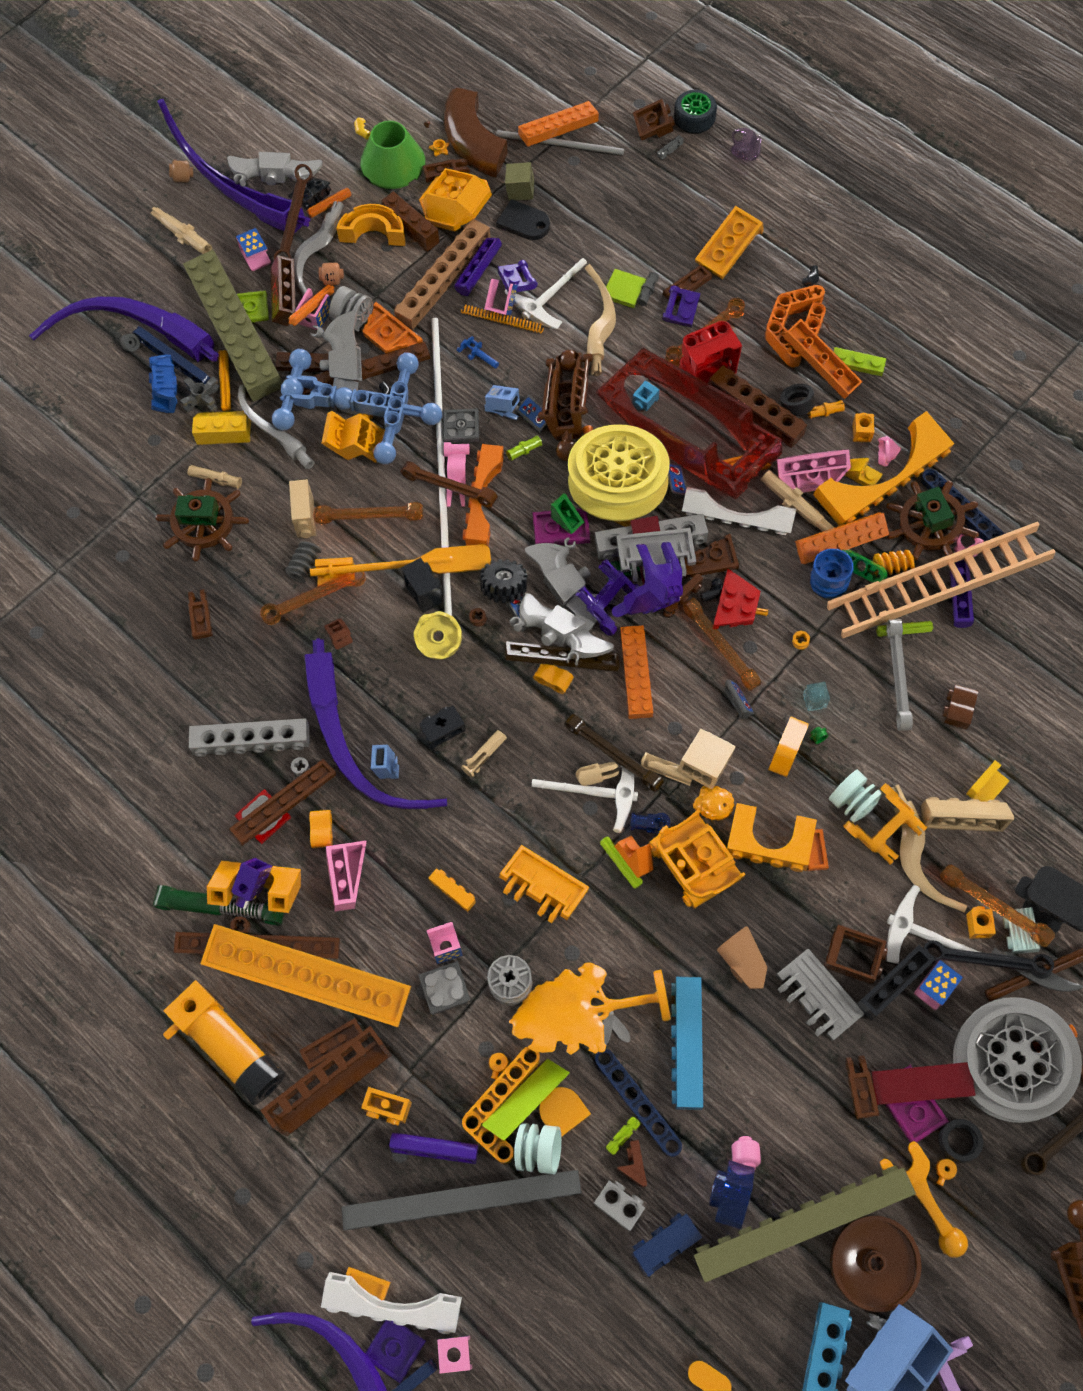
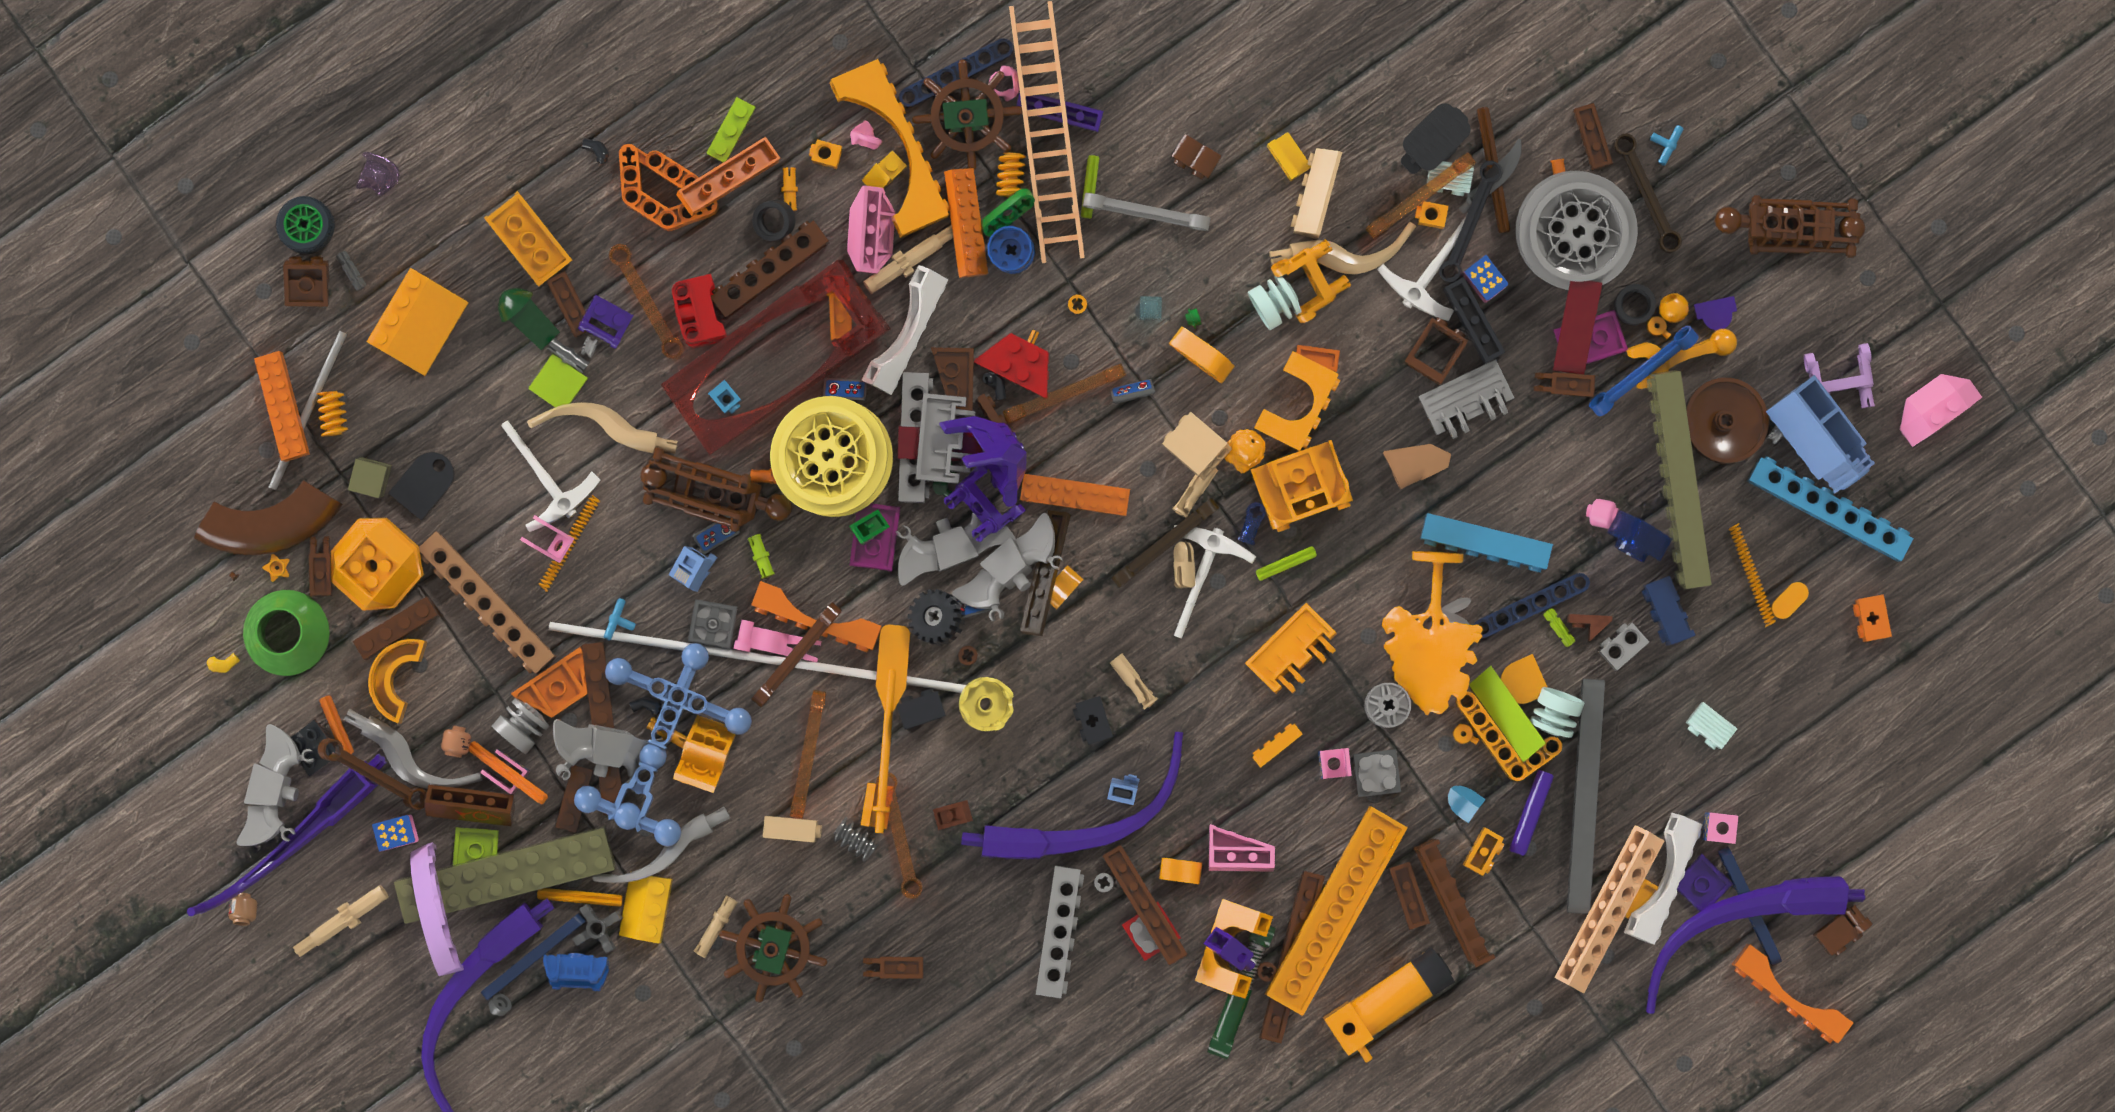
camera: 80 degrees left, 20 degrees up
(193, 265) = (432, 910): none -> lavender windscreen
(351, 1250) = (1609, 909): none -> light nougat brick
(432, 1078) = (1464, 802): none -> dark azure brick
(449, 358) = (615, 619): none -> dark azure piece
(477, 266) = (483, 557): dark purple brick -> none
(477, 352) = (611, 582): blue piece -> none
(510, 275) = (514, 519): dark purple plate -> none
(559, 1320) = (1711, 726): none -> light aqua brick
(562, 151) = (332, 413): none -> light orange piece
(636, 857) = (1287, 546): orange slope -> none
(645, 190) = (417, 322): none -> light orange slope
(658, 300) = (589, 347): none -> light grey bush
(674, 246) = (526, 316): none -> dark green piece
(724, 1328) = (1765, 609): none -> light orange piece
(942, 1192) = (1683, 340): none -> blue piece
(970, 1181) = (1673, 308): none -> light orange piece
(980, 1229) = (1716, 313): none -> dark purple piece

